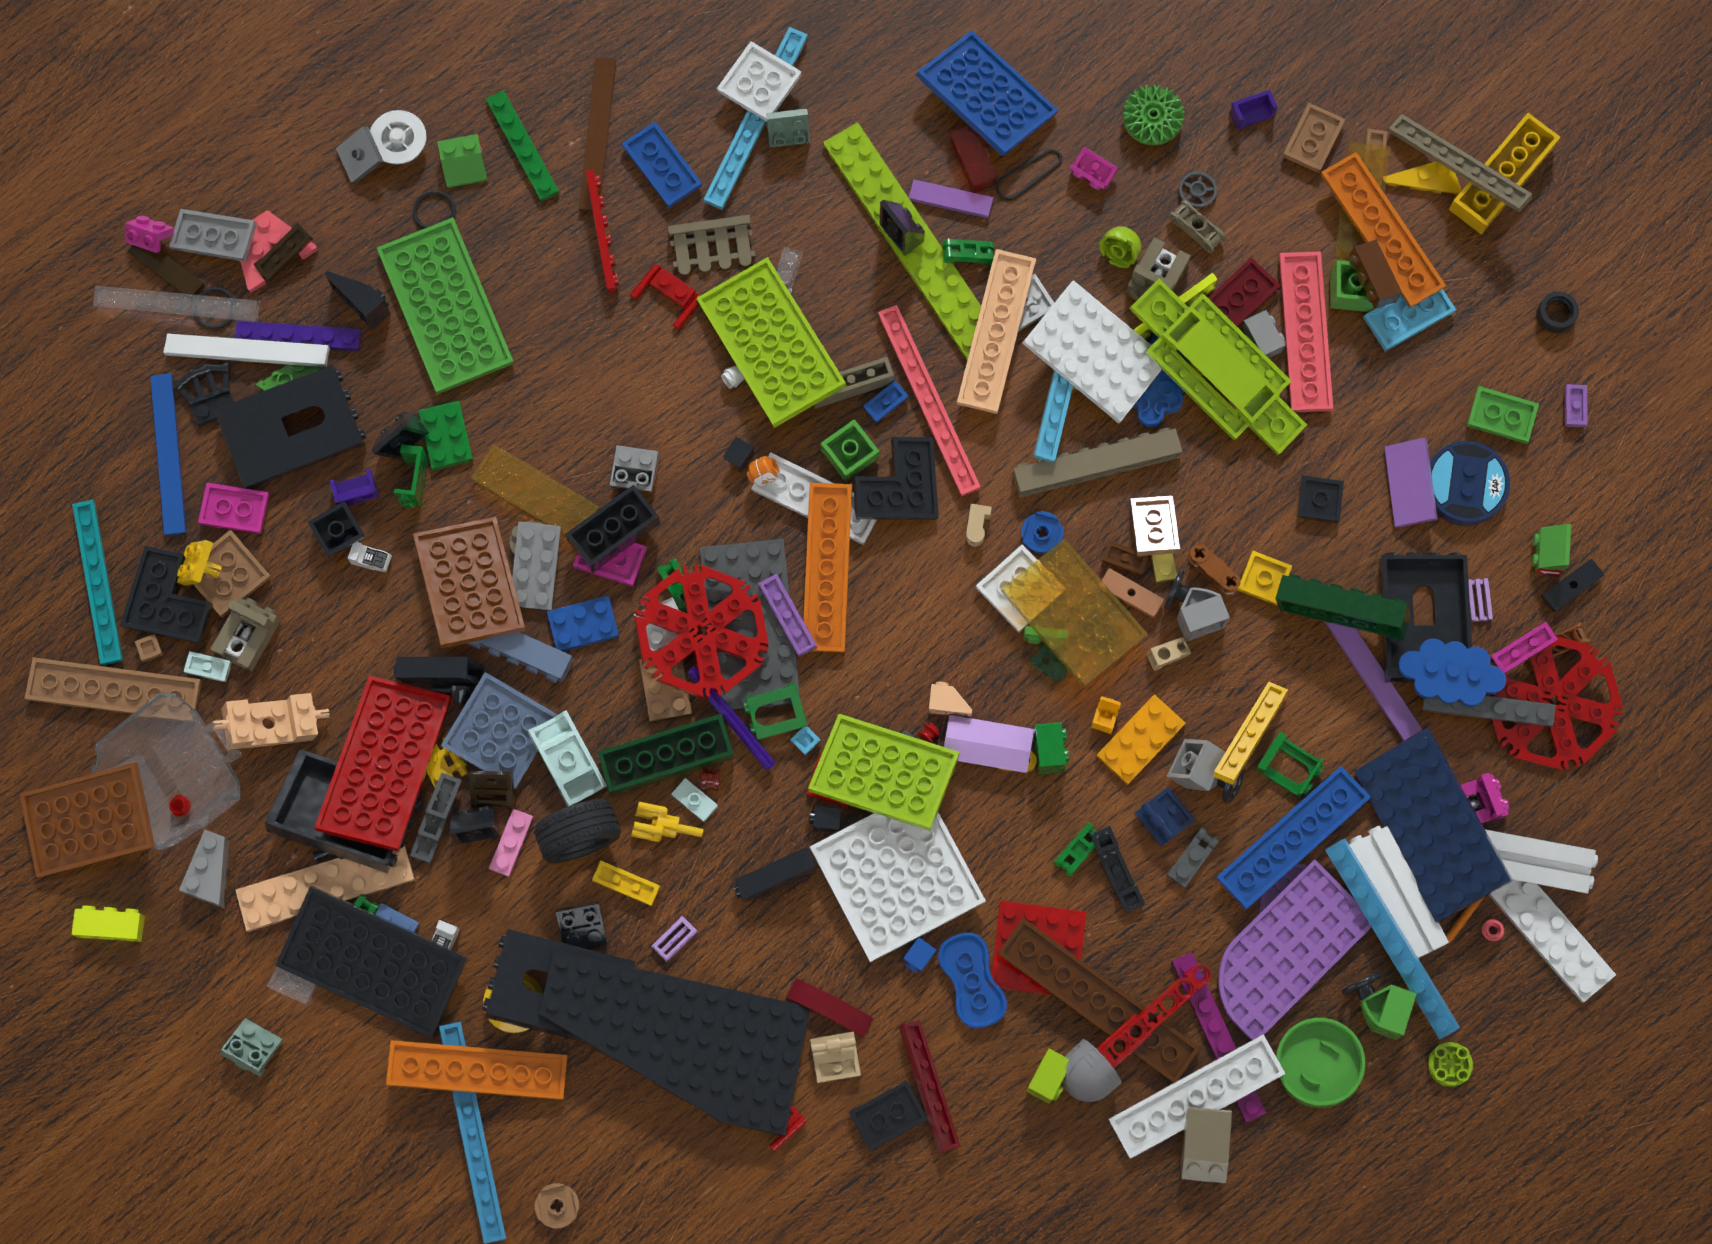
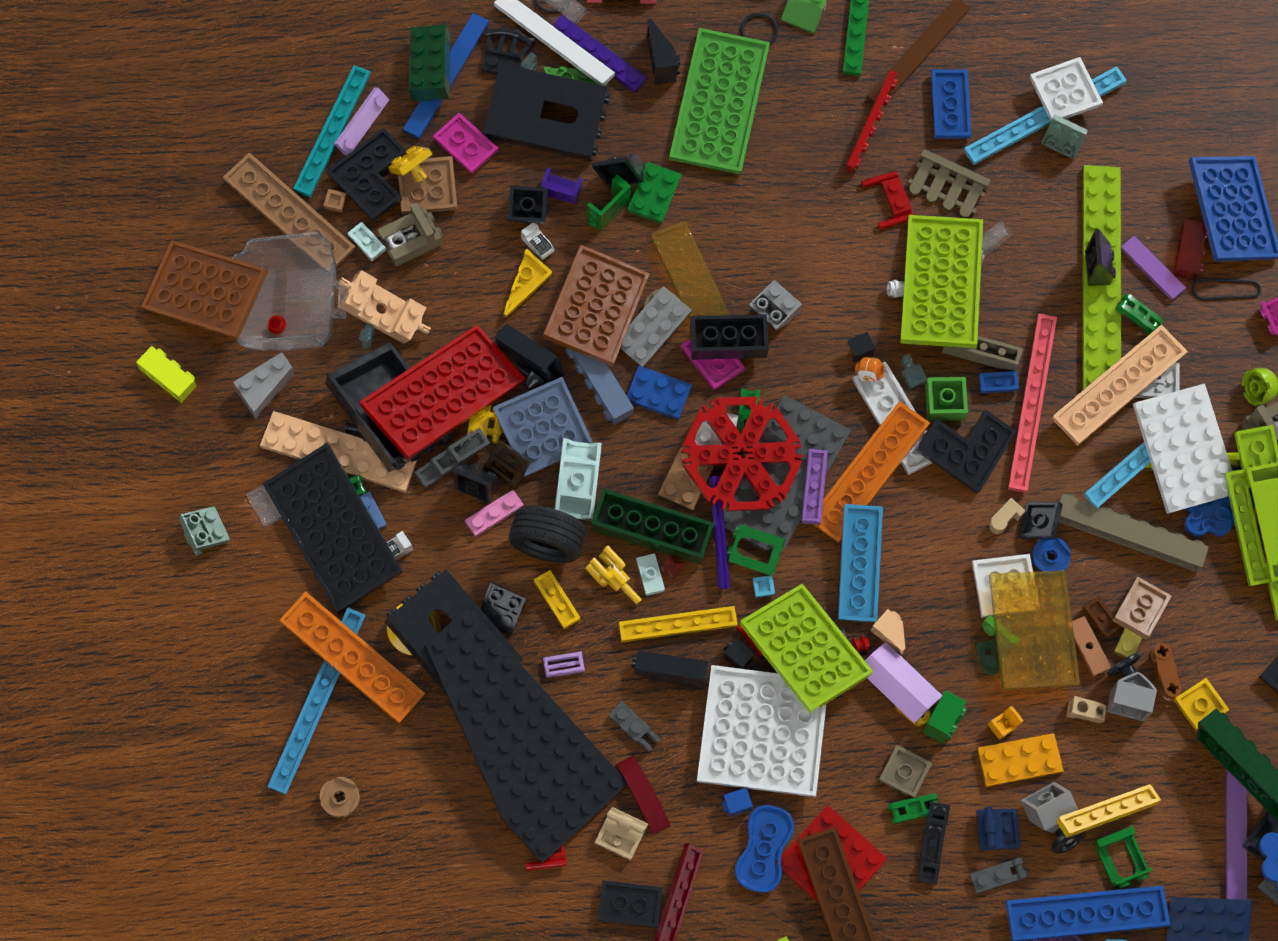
camera: 30 degrees right, 5 degrees down
(119, 553) = (361, 121): none -> lavender plate
(144, 453) = (429, 63): none -> dark green brick
(241, 390) = (530, 62): none -> clear light blue plate
(272, 757) = (366, 336): none -> clear light blue plate
(387, 598) = (530, 277): none -> yellow wing
(752, 829) = (678, 624): none -> yellow plate
(776, 951) = (633, 725): none -> dark grey hinge
(803, 448) = (912, 374): none -> clear light blue plate
(877, 658) = (860, 563): none -> dark azure plate
(1011, 506) = (1040, 520): none -> black plate
(1048, 822) = (905, 771): none -> dark tan plate

